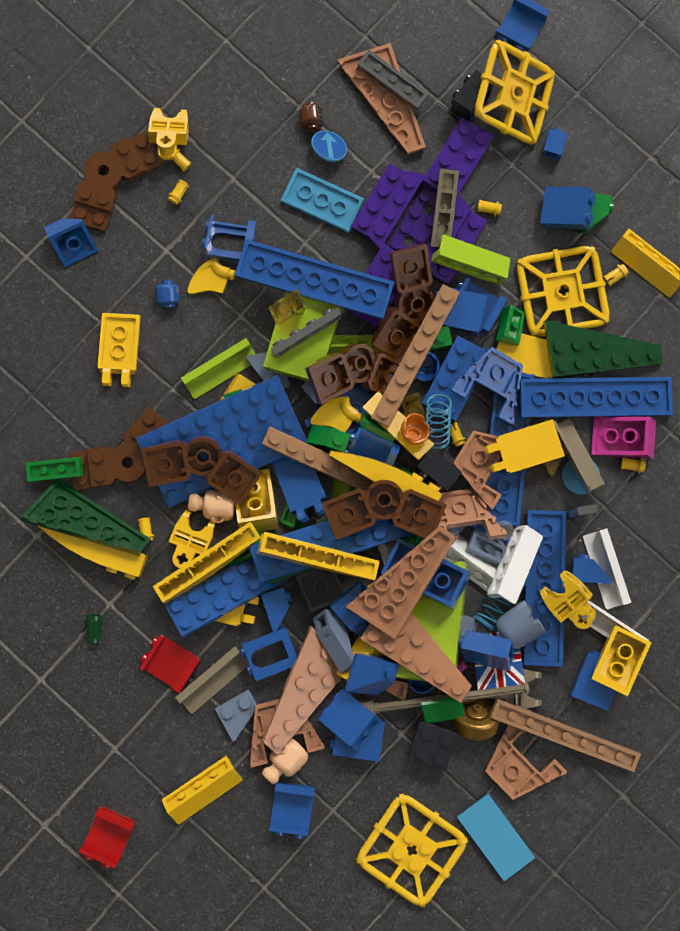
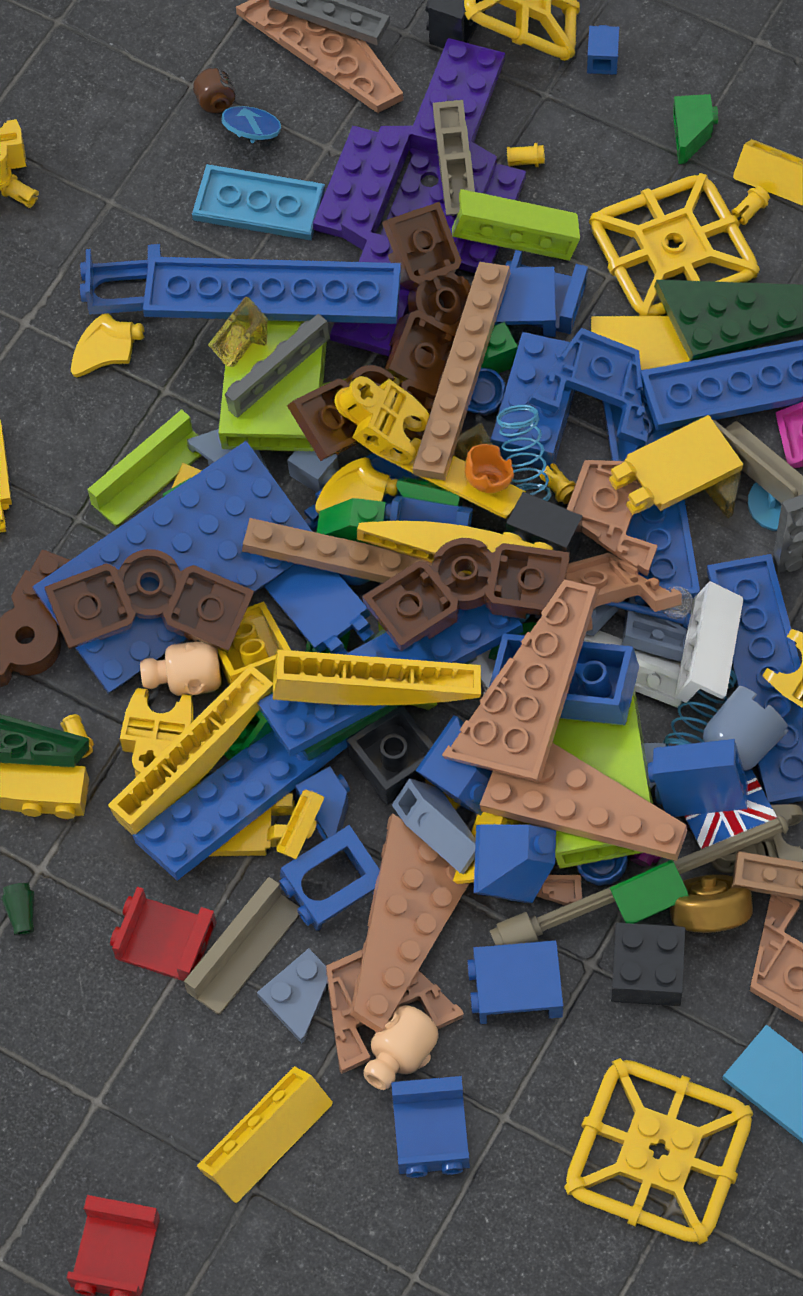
camera: 10 degrees left, 20 degrees down
(167, 293) = (39, 379): blue head -> none
(177, 193) = (23, 242): yellow pin -> none
(258, 621) = (300, 824): none -> yellow plate
(349, 720) = (496, 946): blue panel -> none
(359, 382) = (382, 417): none -> yellow piece
(510, 325) = (604, 307): green slope -> none
(567, 208) = (647, 124): blue brick -> none

